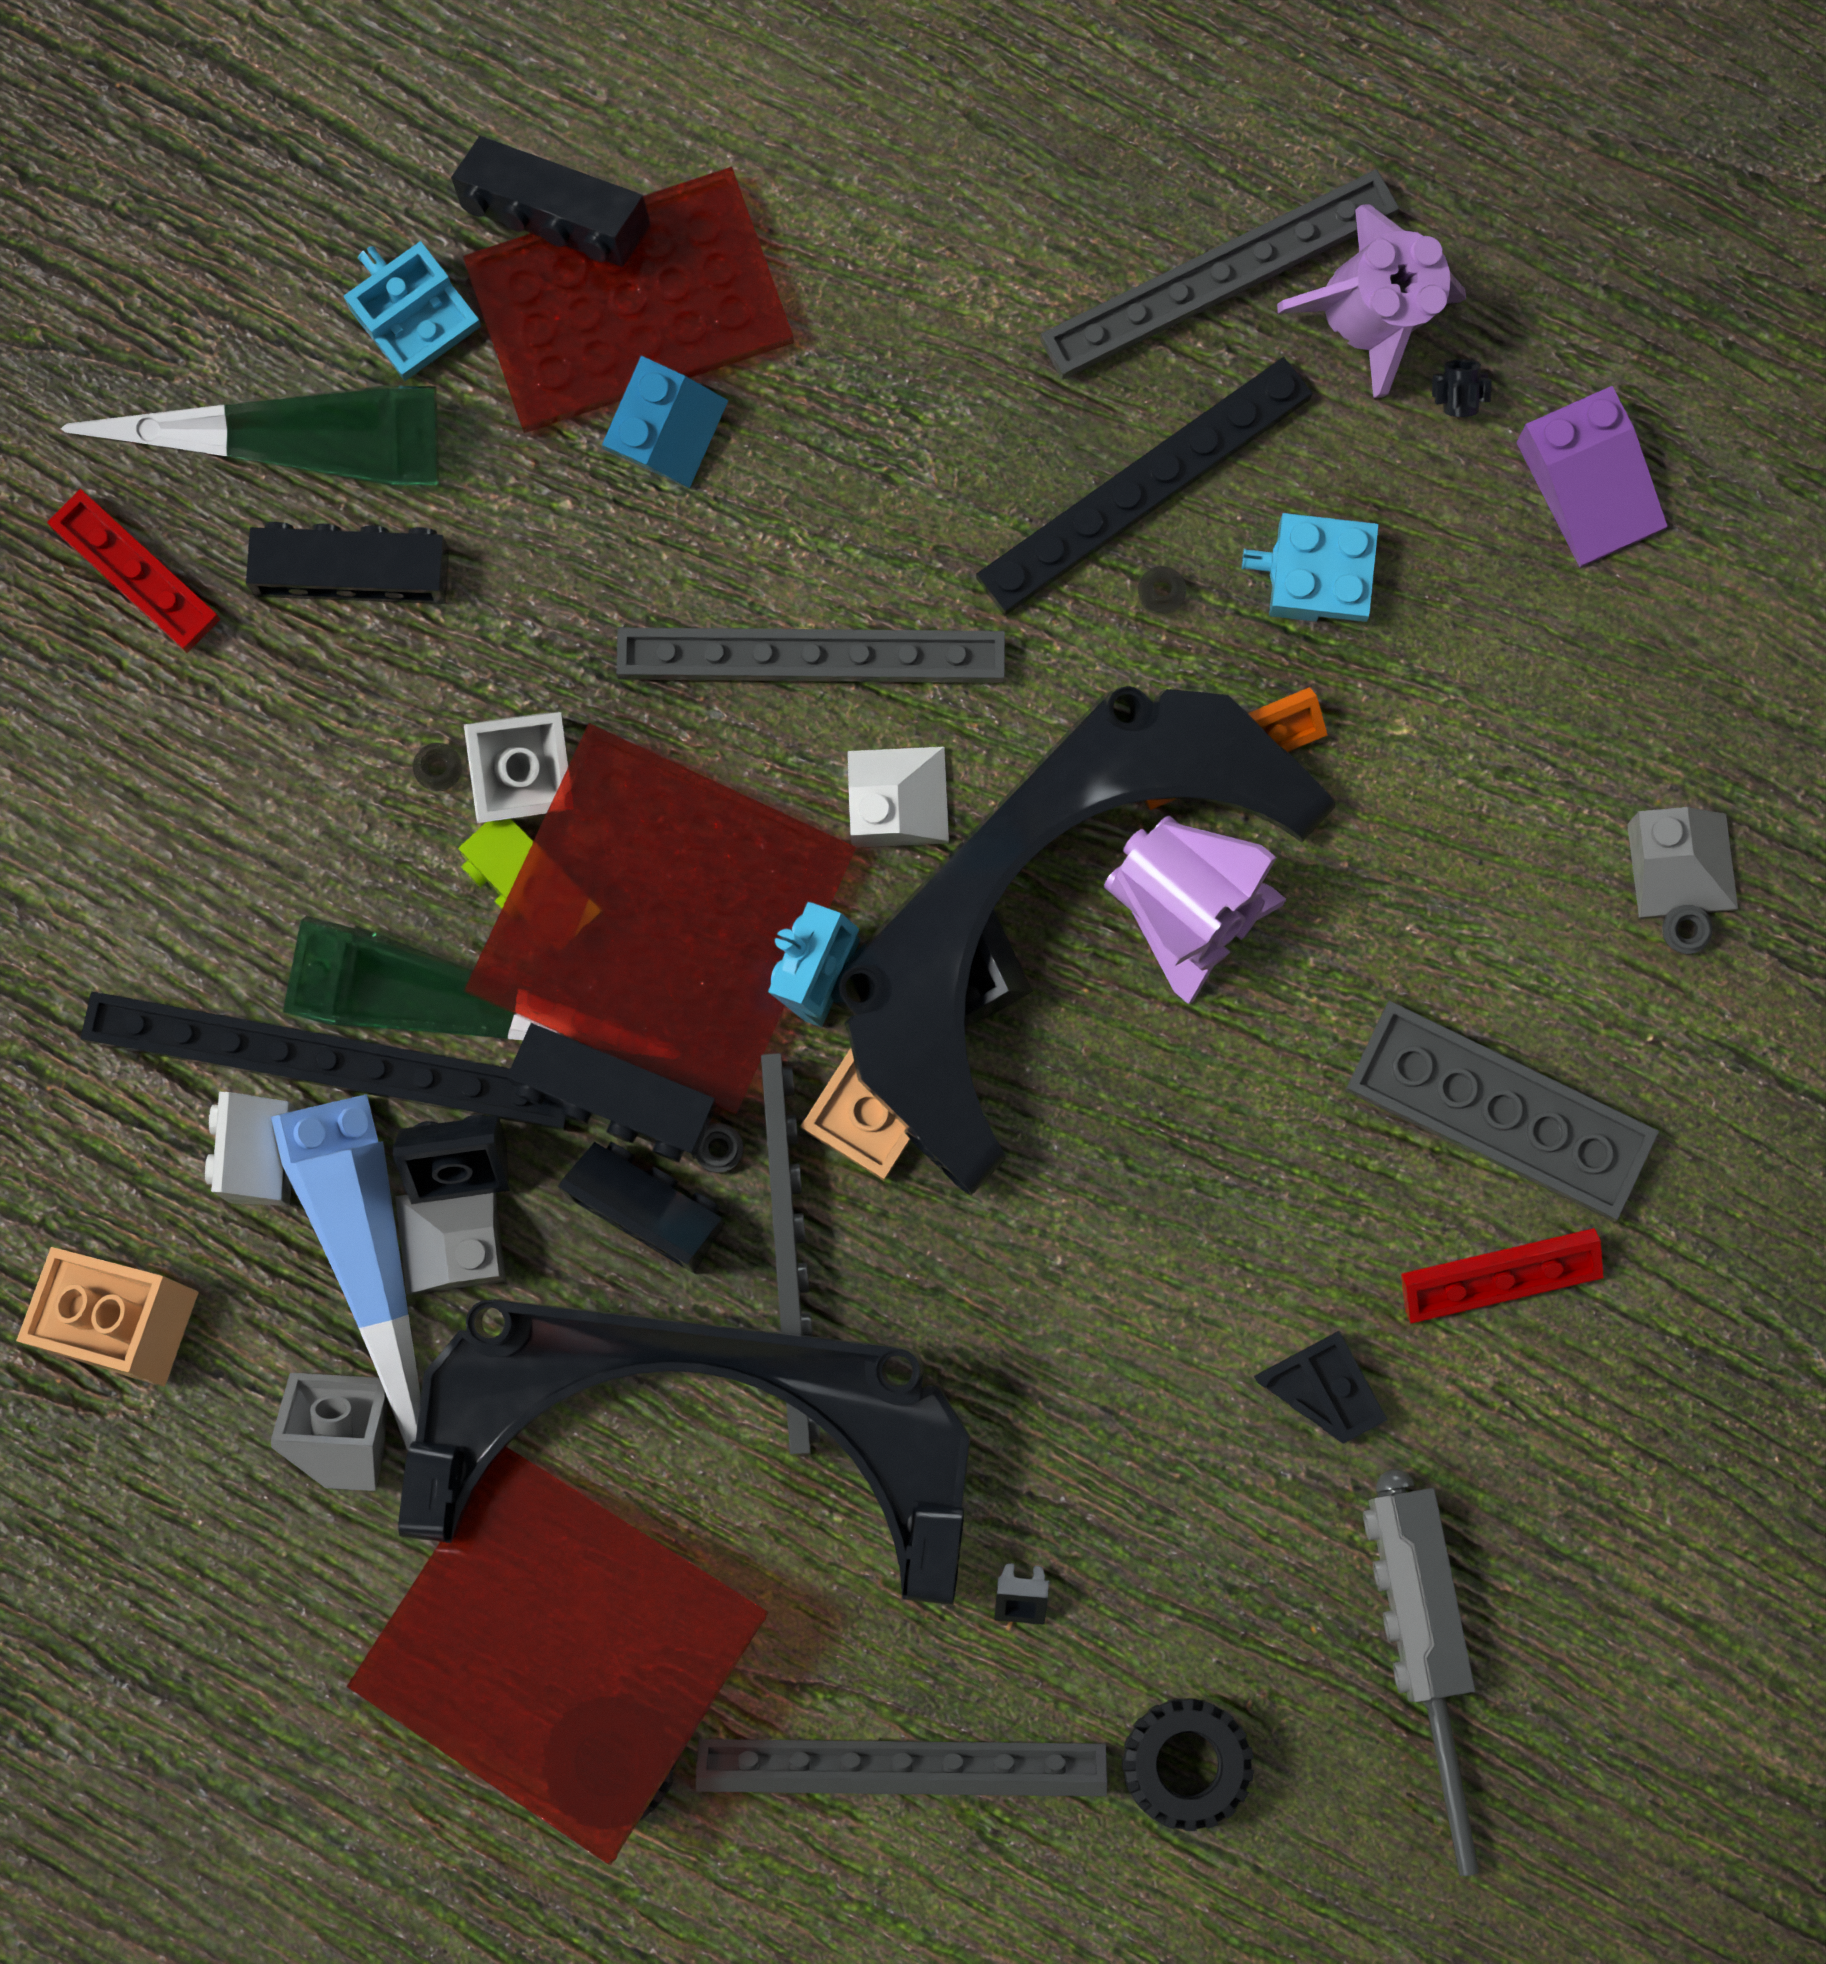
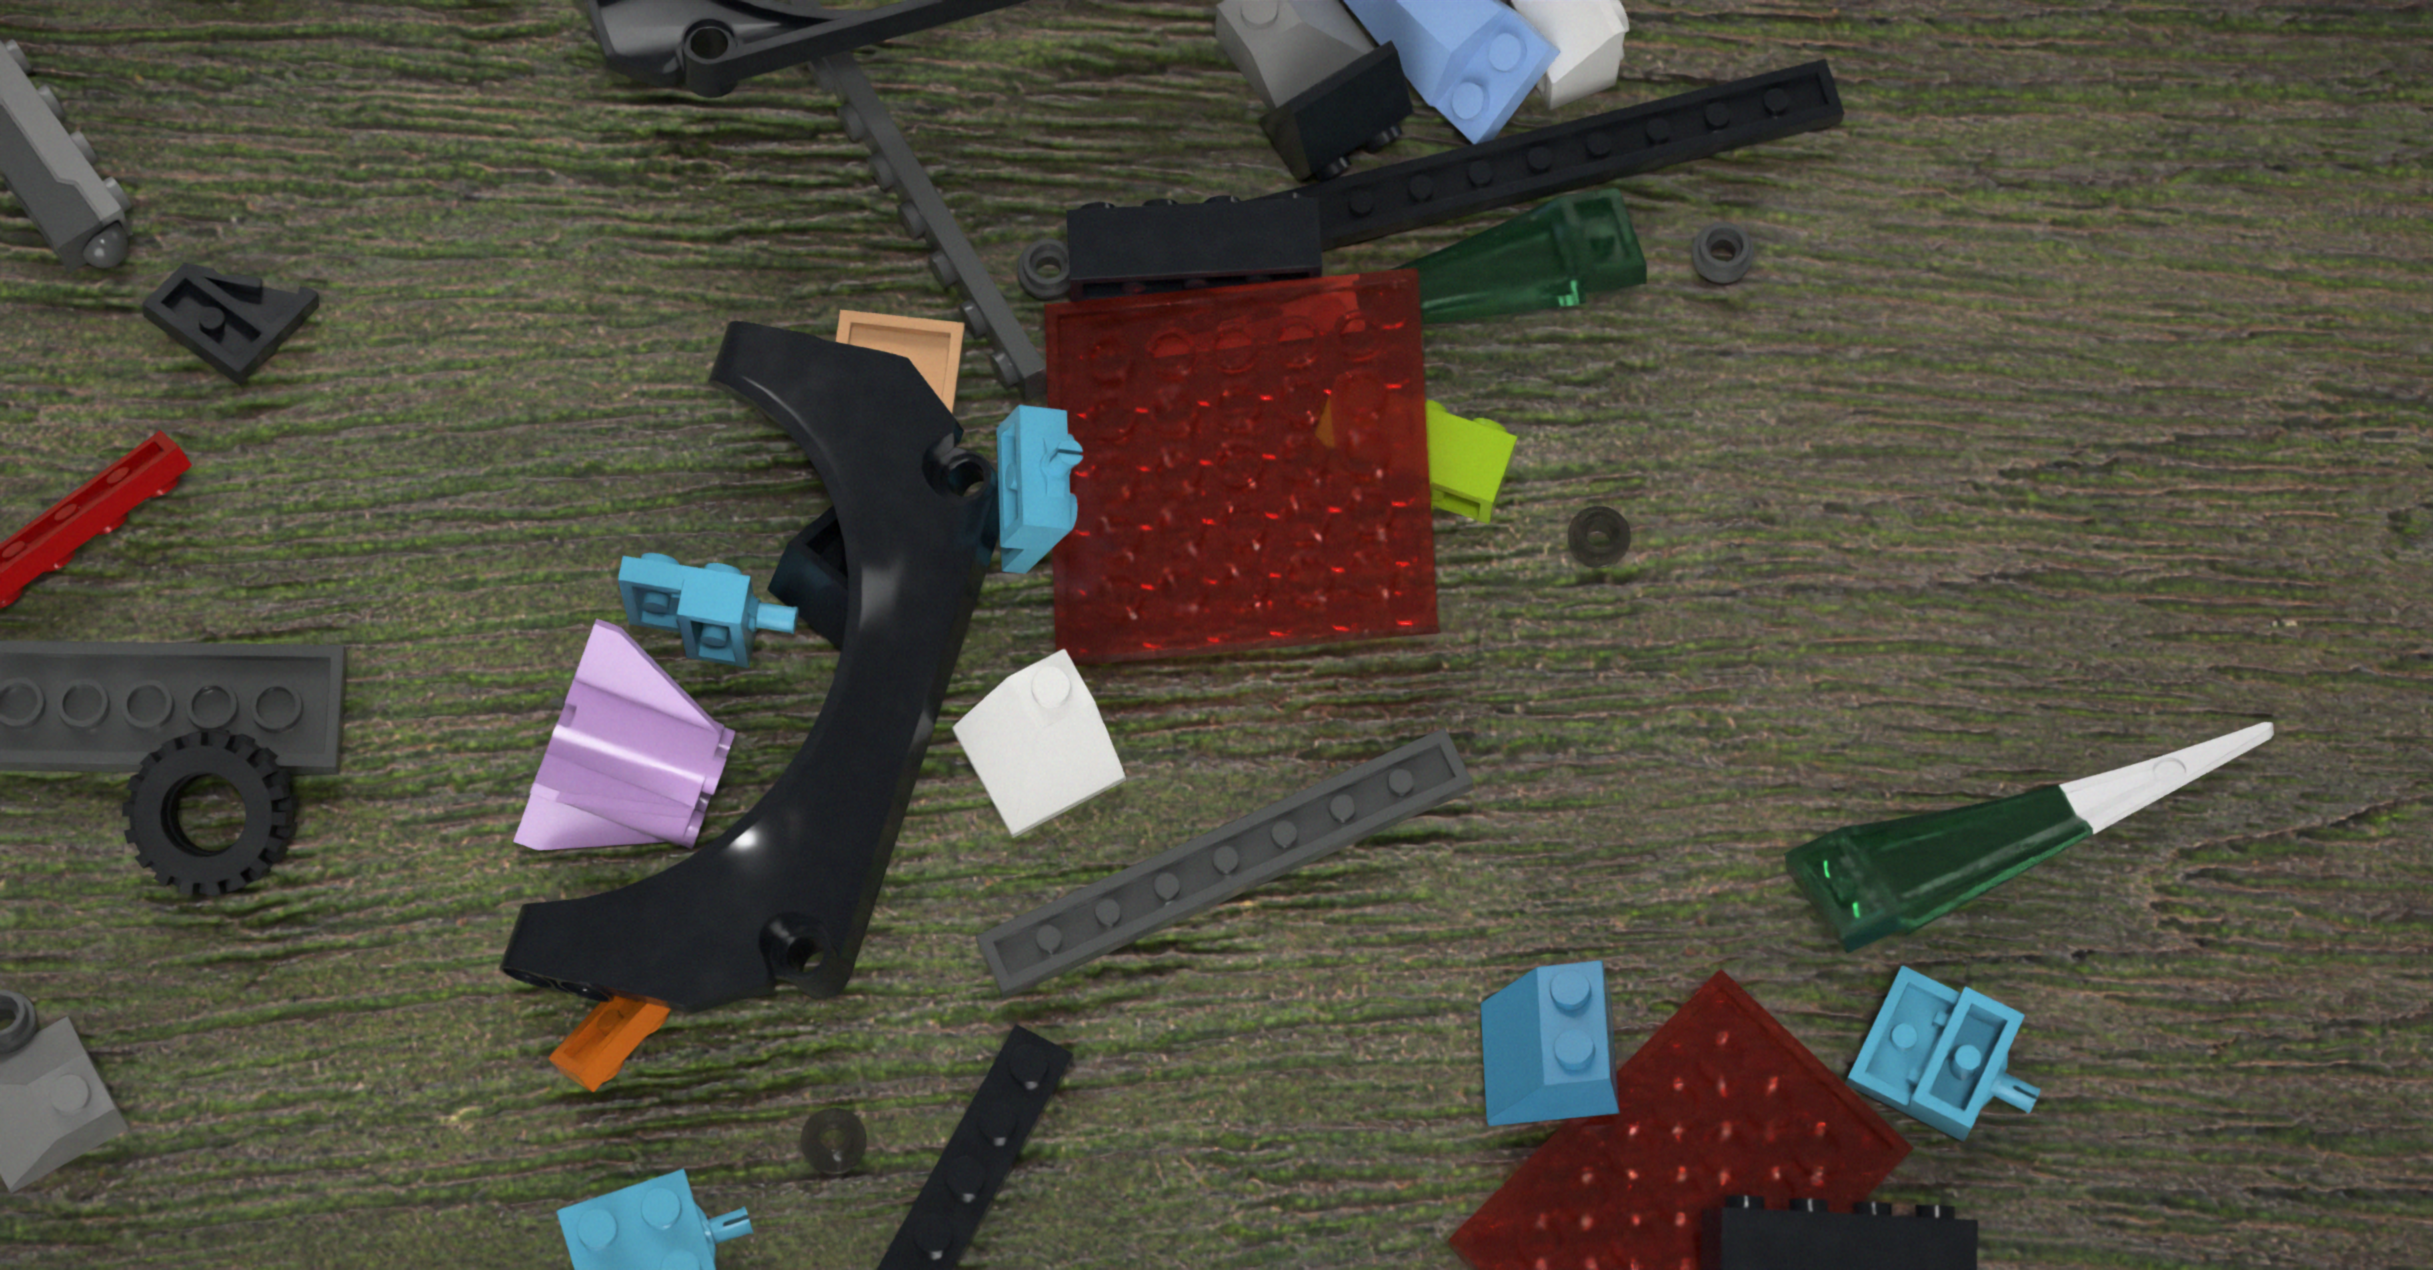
camera: 150 degrees right, 10 degrees down
(133, 570) = (2083, 593): red plate -> none
(229, 921) = (1728, 237): none -> dark grey plate
(347, 564) = (1835, 712): black brick -> none
(515, 764) = (1503, 557): white slope -> none
(644, 1204) = (1094, 147): black slope -> none
(1080, 981) = (708, 606): none -> medium azure plate
(1510, 970) = (156, 825): none -> black tyre

